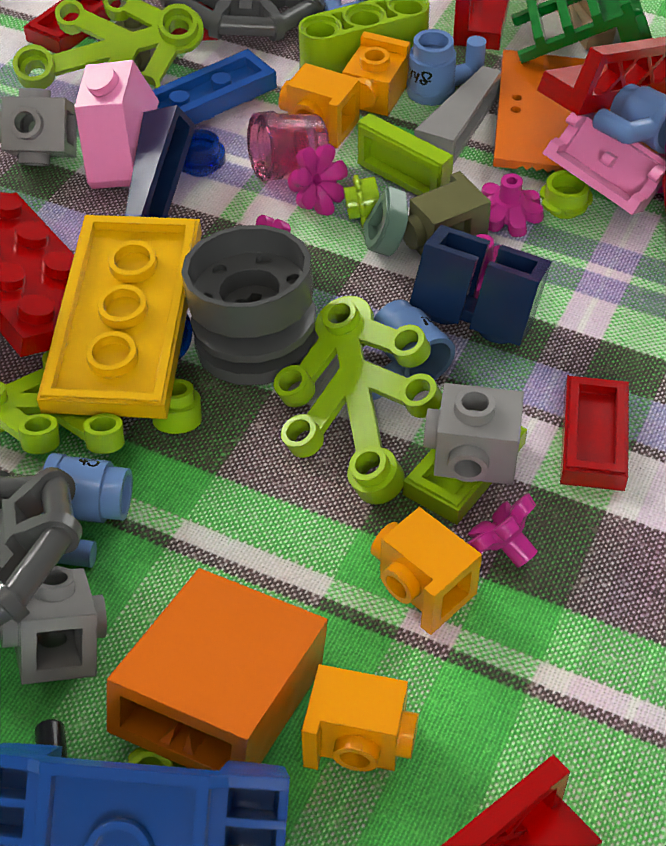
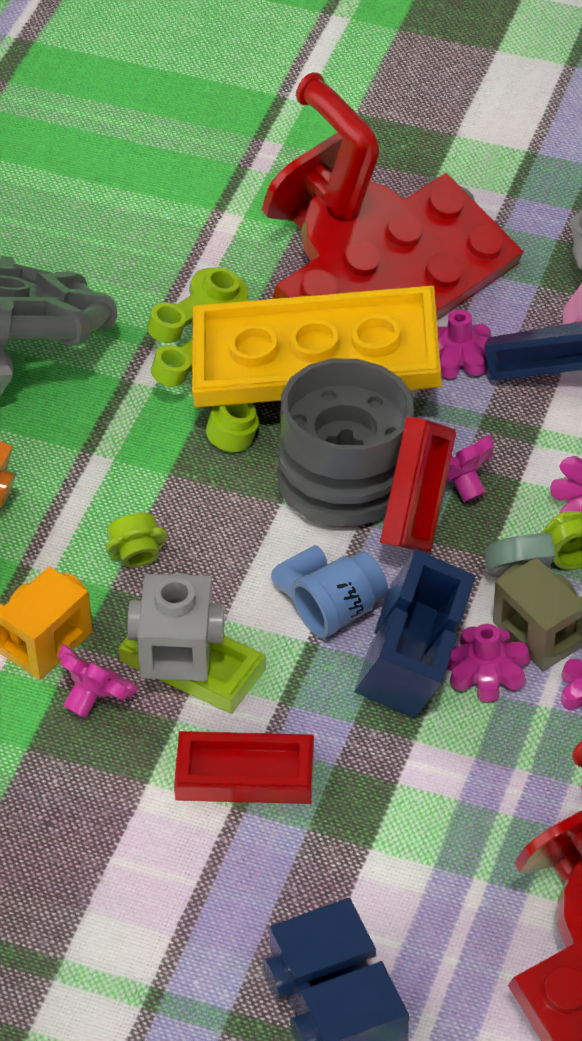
camera: 85 degrees right, 0 degrees up
(99, 495) = (116, 370): medium blue piece -> none
(319, 490) = (135, 539): none -> lime plate
(331, 266) = (418, 485): none -> red tile
(344, 330) = (293, 554): lime plant -> none

